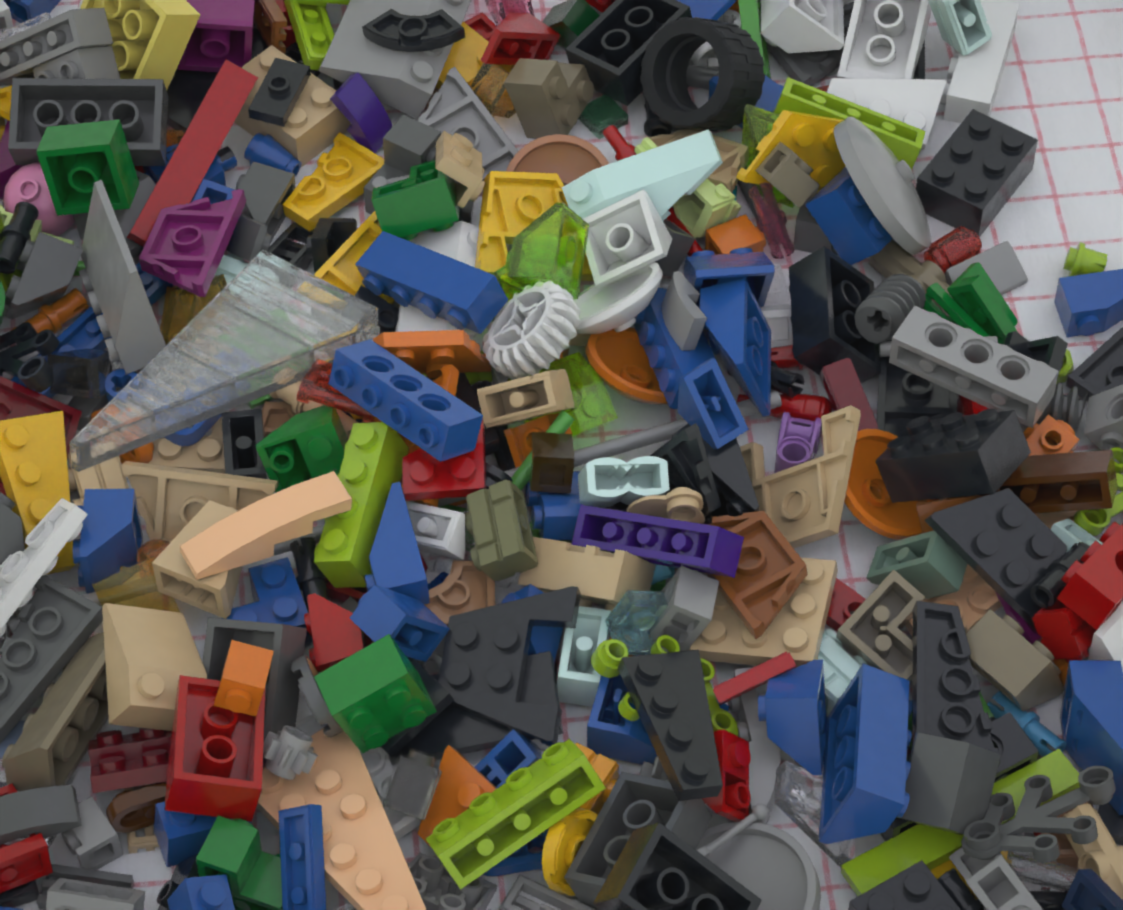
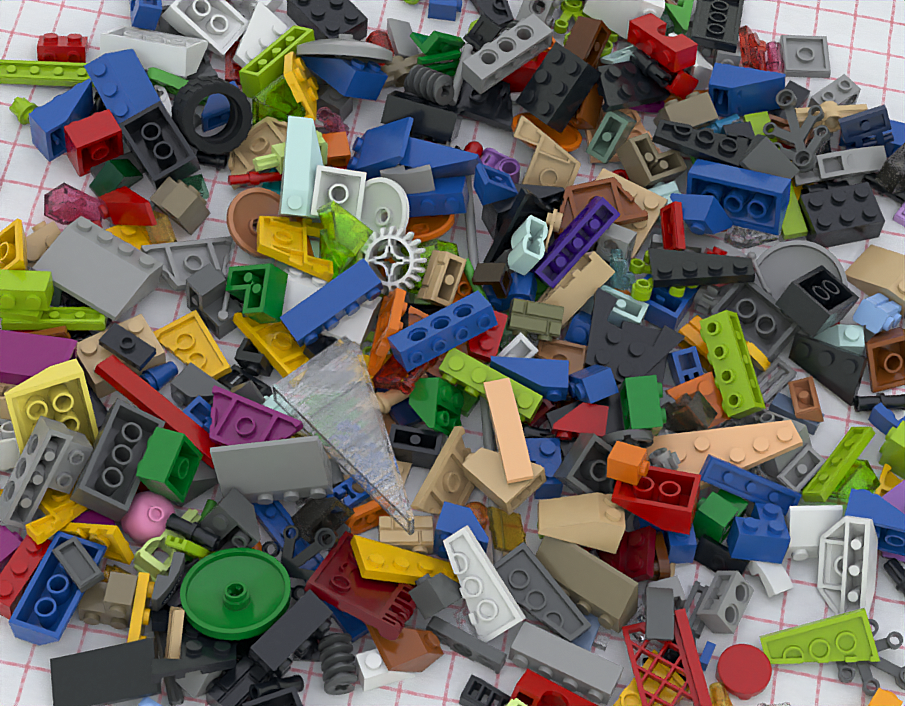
camera: 80 degrees left, 5 degrees up
(363, 111) = (151, 310): dark purple slope -> none
(413, 32) = (117, 253): black tile -> none
(462, 163) = (245, 257): tan bracket -> none
(789, 175) = (324, 93): dark tan brick -> none
(845, 390) = (483, 130): dark red slope -> none

